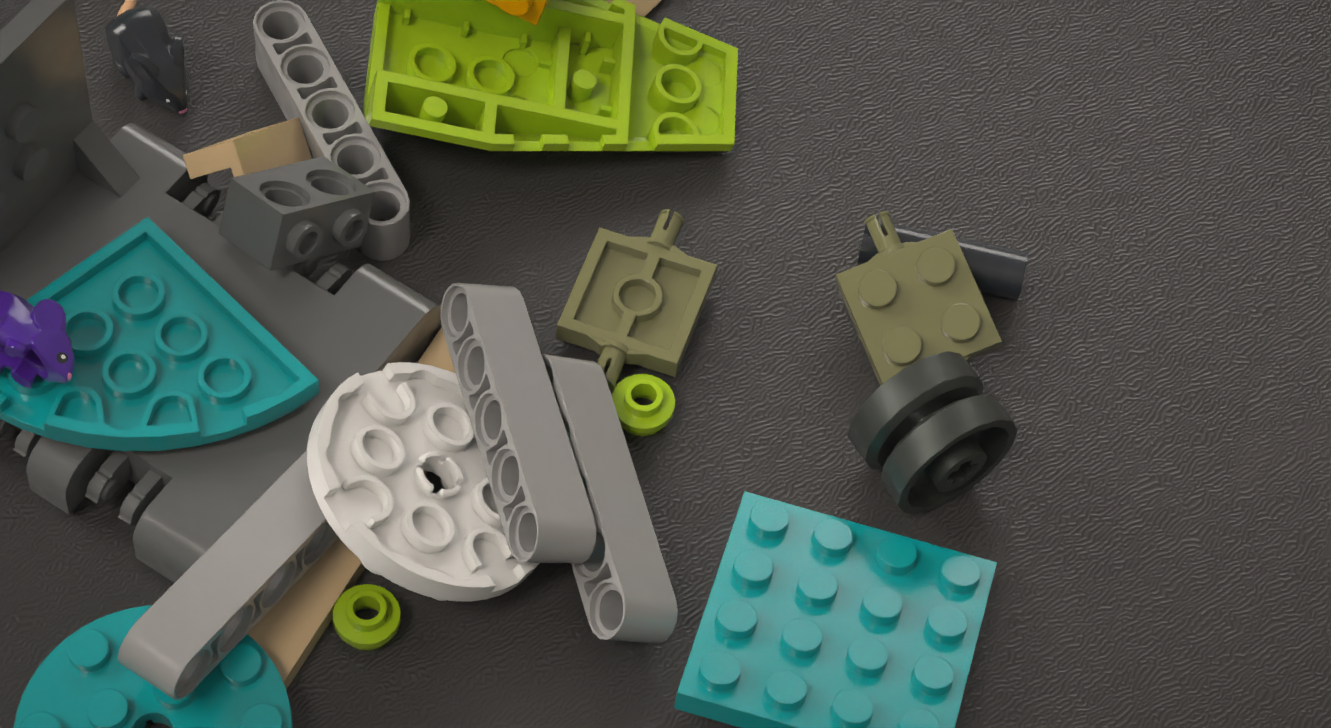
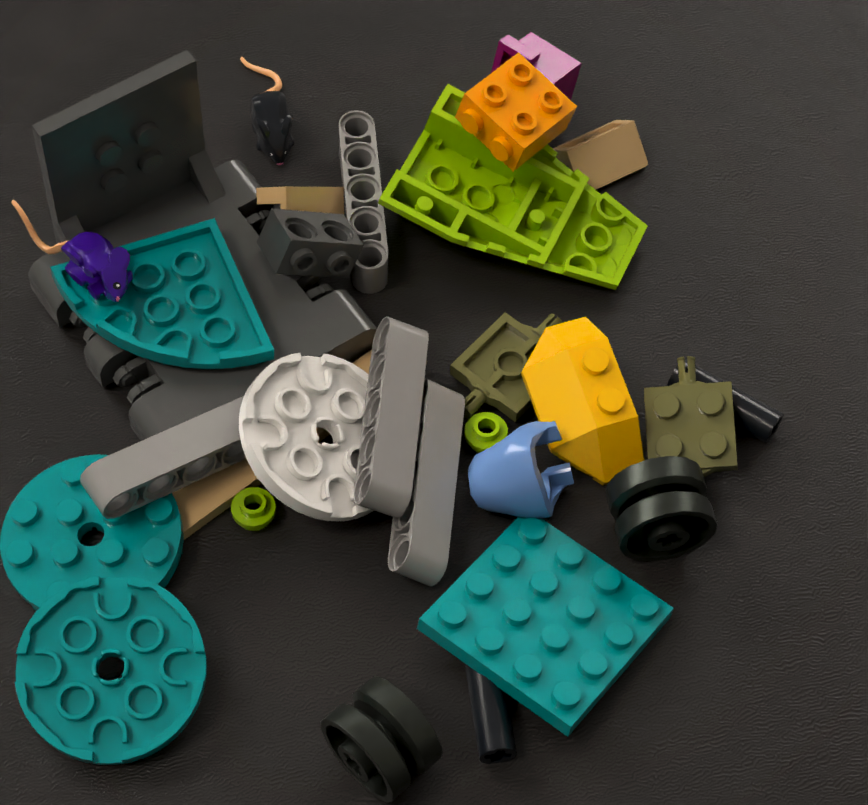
camera: 25 degrees right, 0 degrees up
(714, 453) = (508, 477): none -> medium blue piece
(764, 316) = (581, 388): none -> yellow wedge

